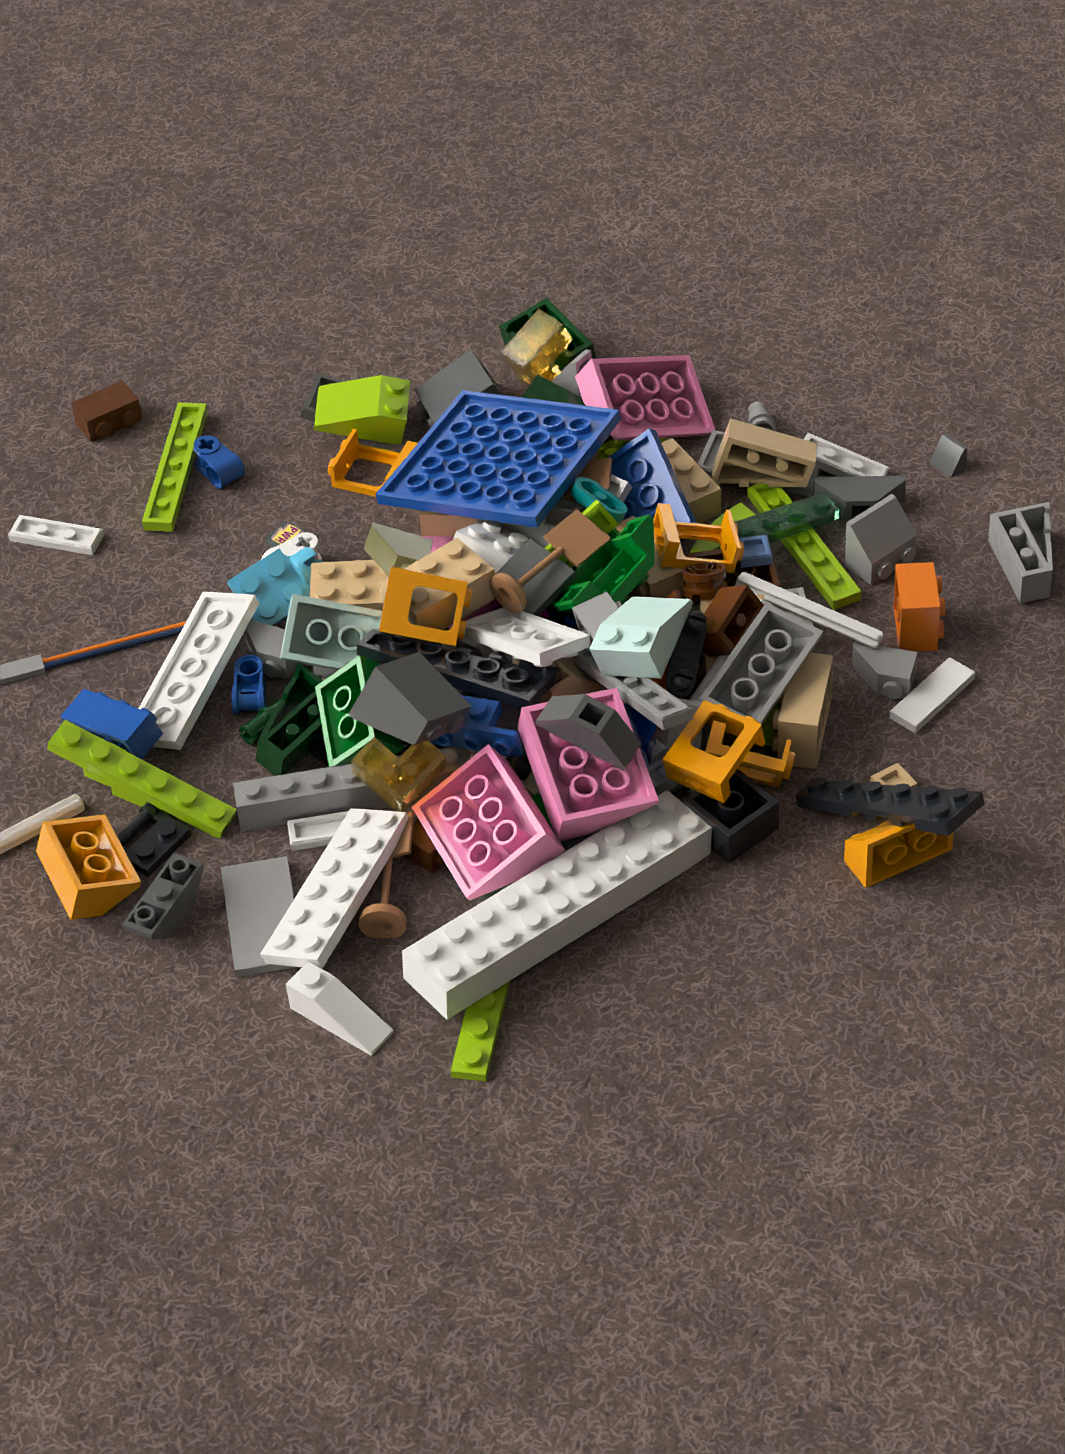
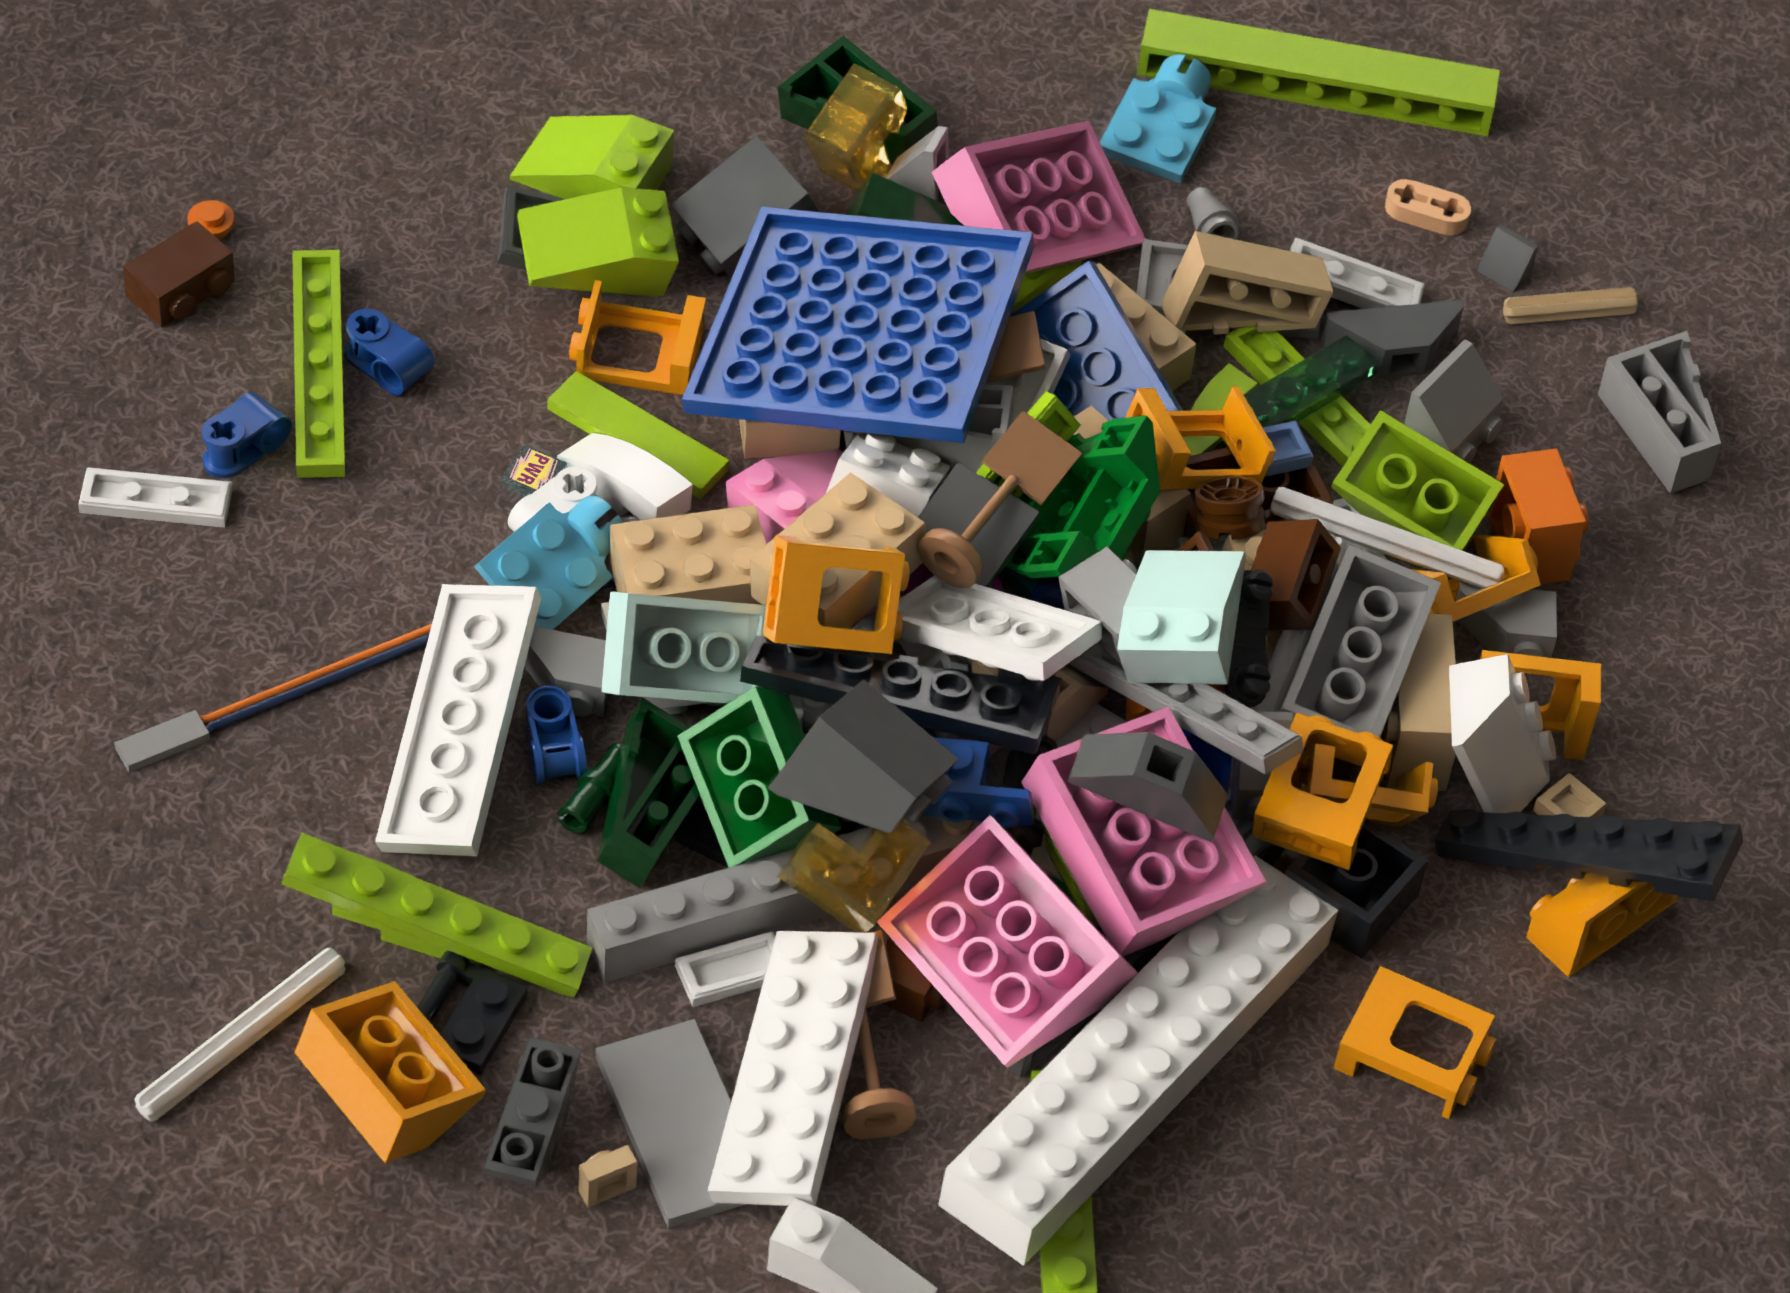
camera: 20 degrees left, 5 degrees up
(114, 721) = (360, 821): blue brick -> none
(118, 500) = (242, 435): none -> blue piece
(138, 383) = (214, 216): none -> orange plate
(203, 940) = (607, 1175): none -> tan plate
(340, 540) = (631, 477): none -> white slope
(345, 511) = (606, 413): none -> lime tile
(383, 356) = (595, 155): none -> lime slope
(395, 547) = (752, 498): slope -> none
(586, 491) = (1027, 380): teal plate -> none
(713, 903) = (1376, 1020): none -> light orange window
(745, 362) = (1162, 120): none -> medium azure plate
(839, 580) = (1416, 484): none -> lime slope
(845, 730) = (1498, 734): none -> white slope
(856, 340) = (1325, 72): none -> lime brick
(889, 625) = (1518, 577): none -> light orange window
(906, 423) = (1428, 207): none -> light nougat beam
(908, 717) = (1573, 698): none -> light orange window
(932, 695) = (1591, 639): white tile -> none
(984, 487) = (1570, 305): none -> tan axle

